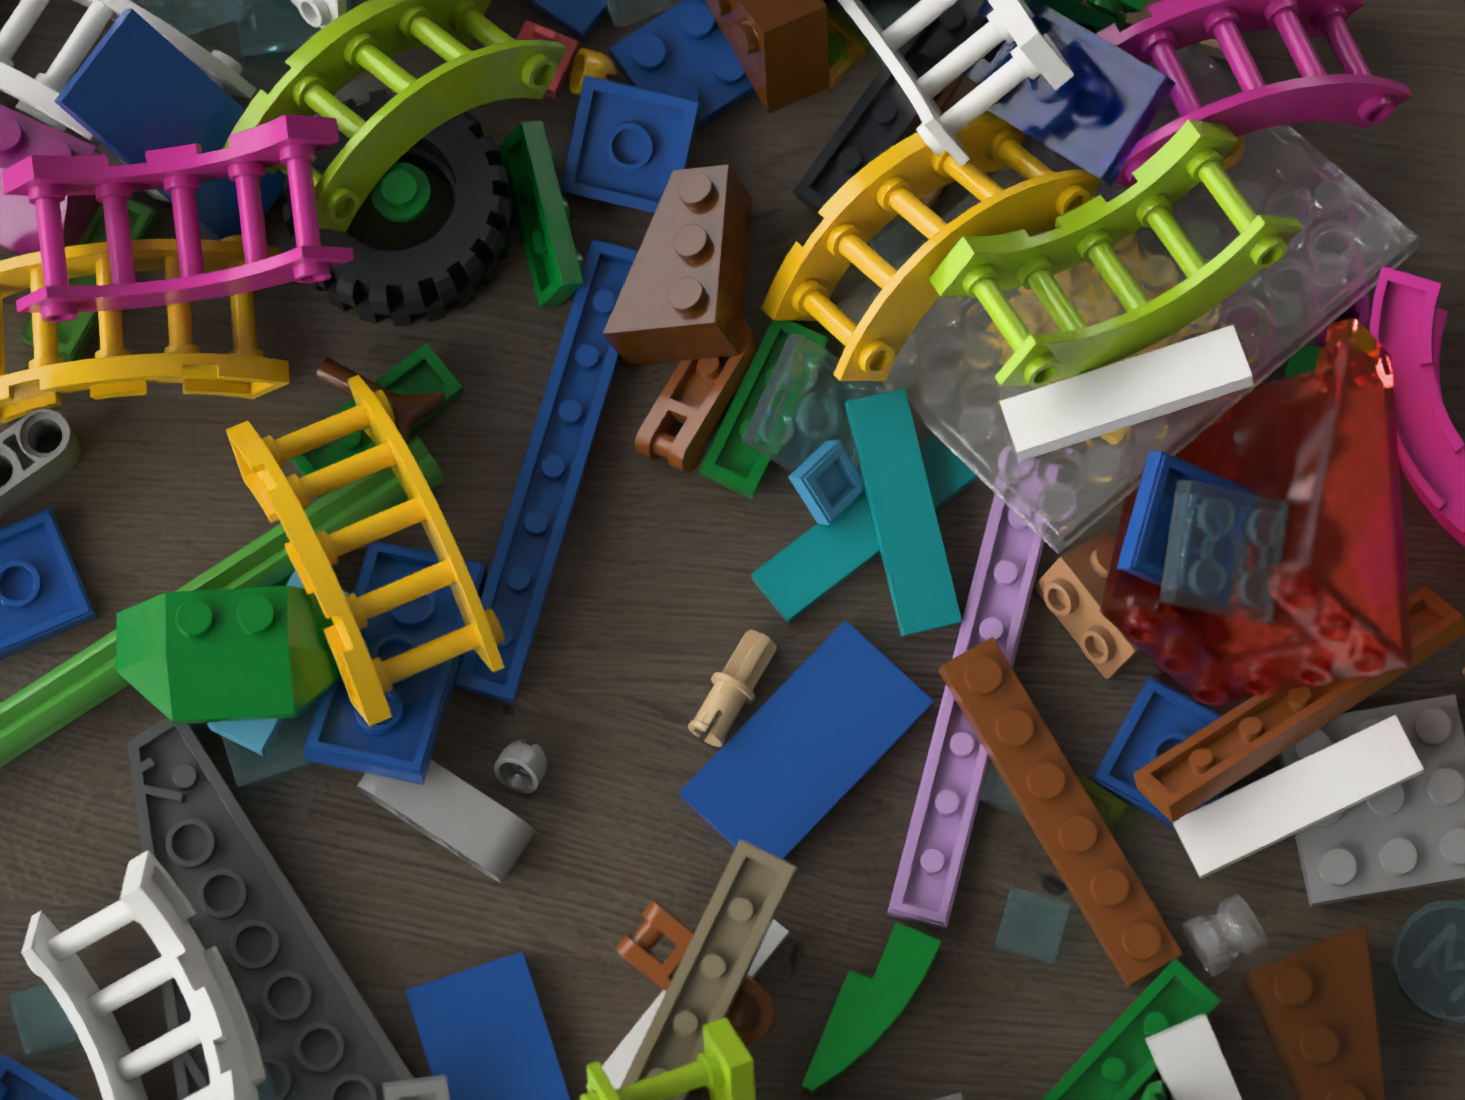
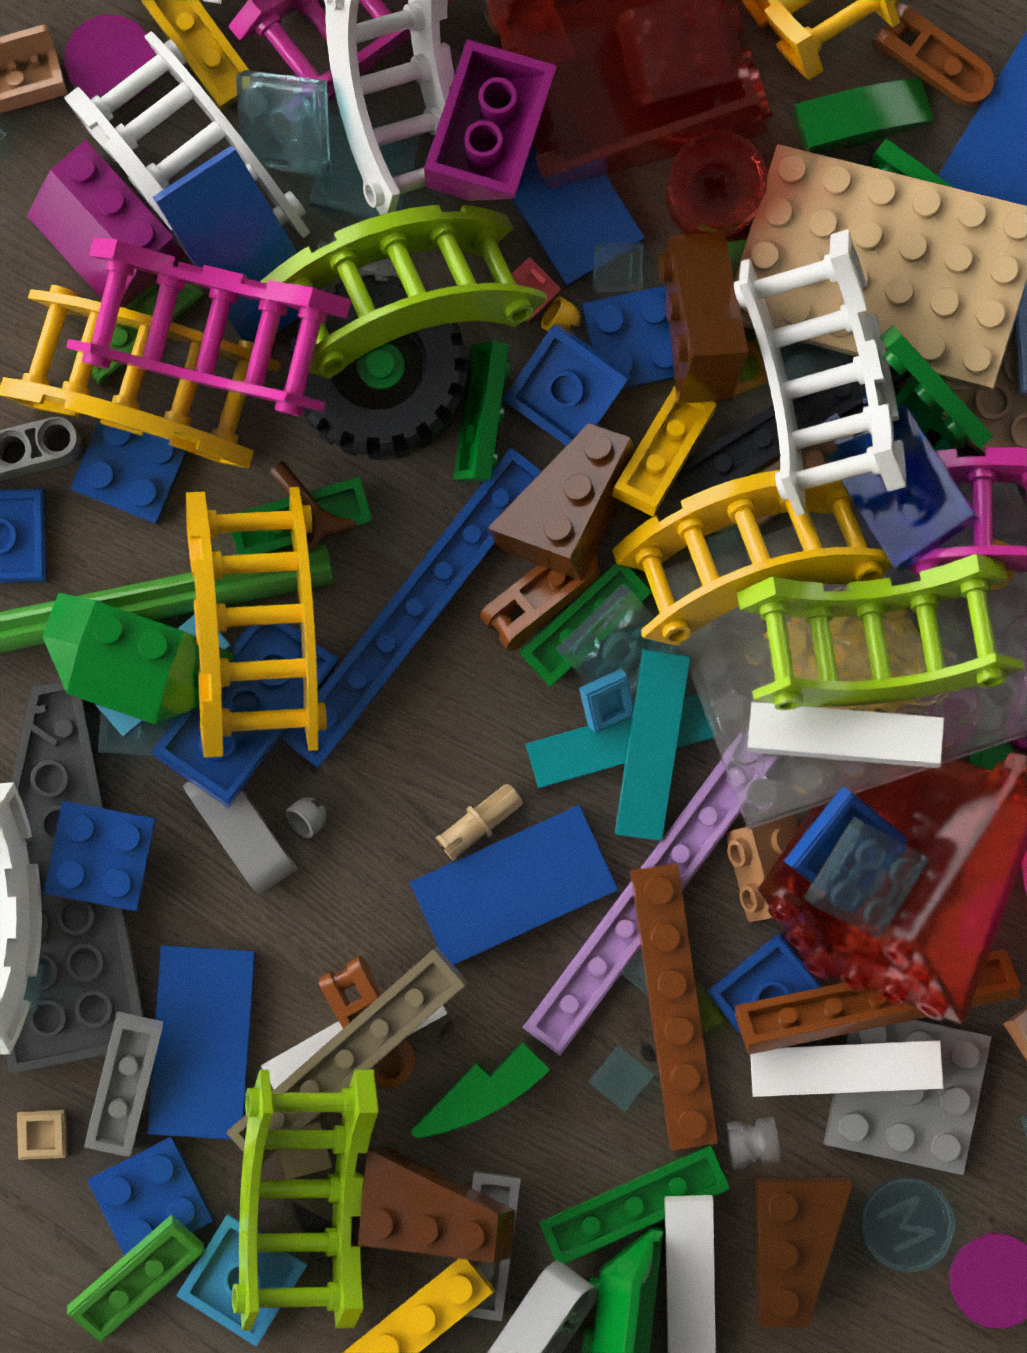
camera: 15 degrees right, 10 degrees up
(147, 445) = (129, 471): none -> blue plate
(288, 907) = (100, 856): none -> blue plate
(774, 173) = (662, 453): none -> yellow plate

